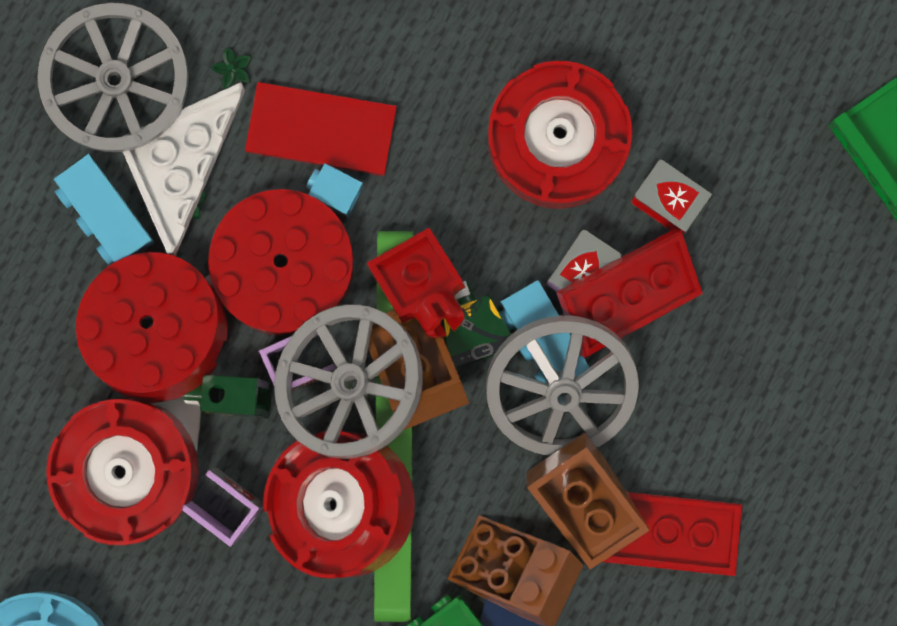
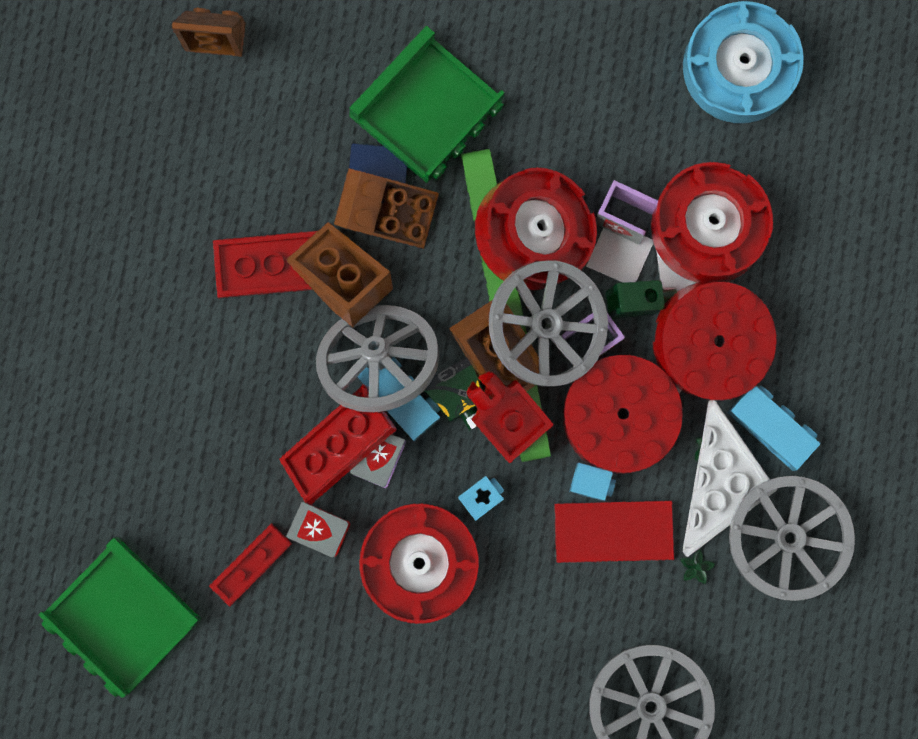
camera: 170 degrees right, 0 degrees up
(242, 456) = (619, 256): none -> white sticker
(474, 185) = (469, 496): none -> medium azure brick
(759, 175) = (250, 565): none -> red tile

